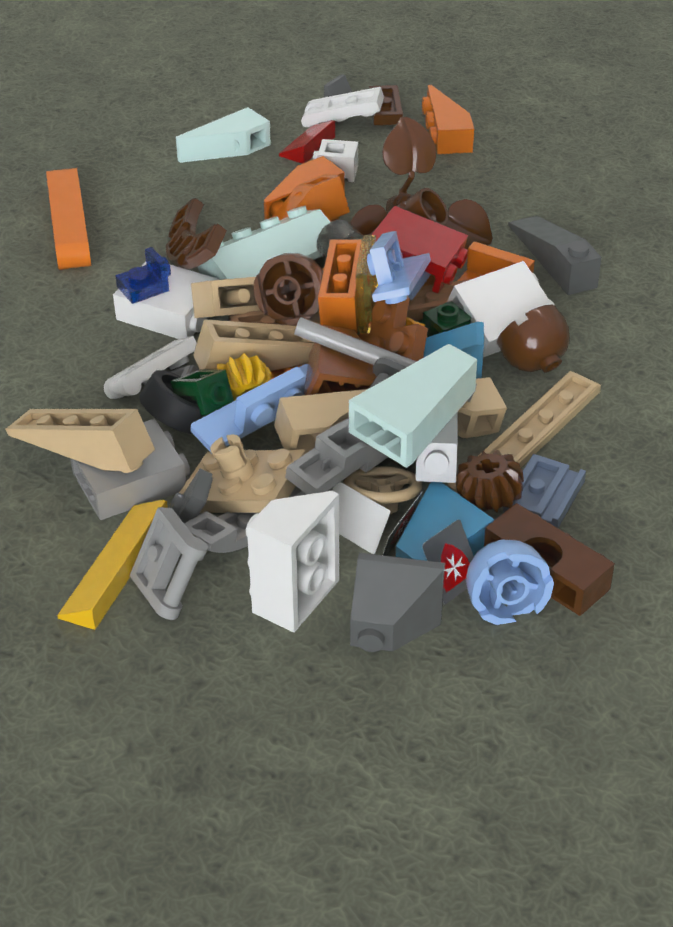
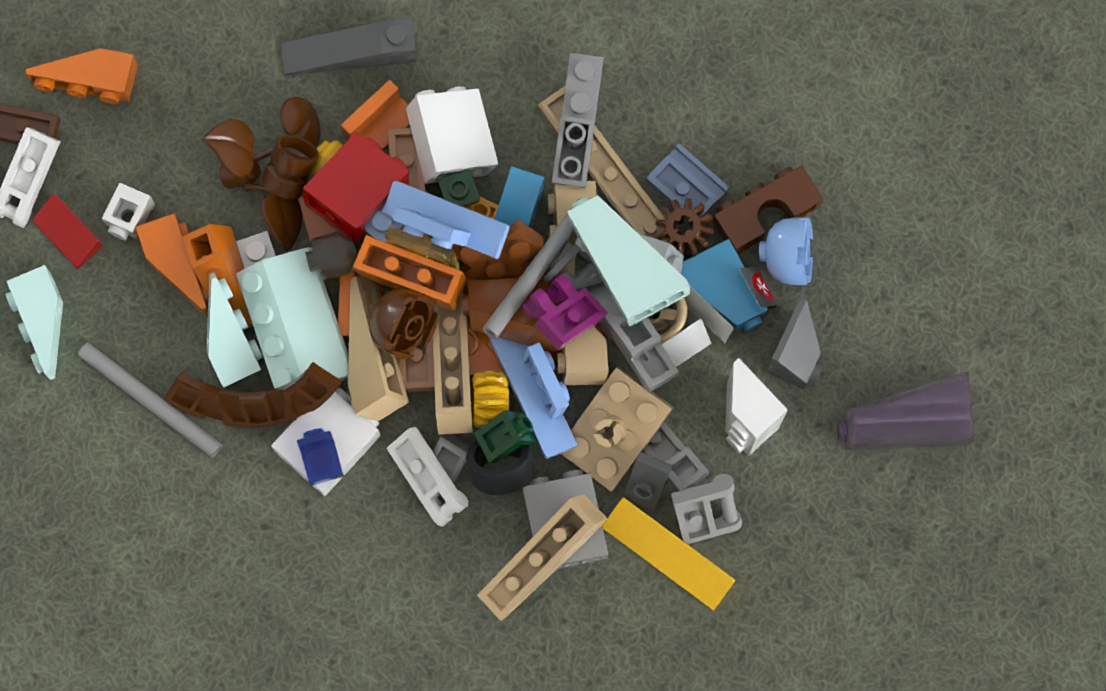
camera: 75 degrees left, 35 degrees up
(68, 219) = (140, 513): orange beam -> none
(166, 217) = (150, 400): none -> light grey piece
(251, 206) = (226, 343): none -> light aqua slope
(334, 374) = (569, 319): none -> magenta plate
(351, 751) = (917, 418): none -> clear purple slope
(537, 341) = (508, 119): reddish brown cylinder -> none
(551, 387) = (577, 120): none -> light grey slope

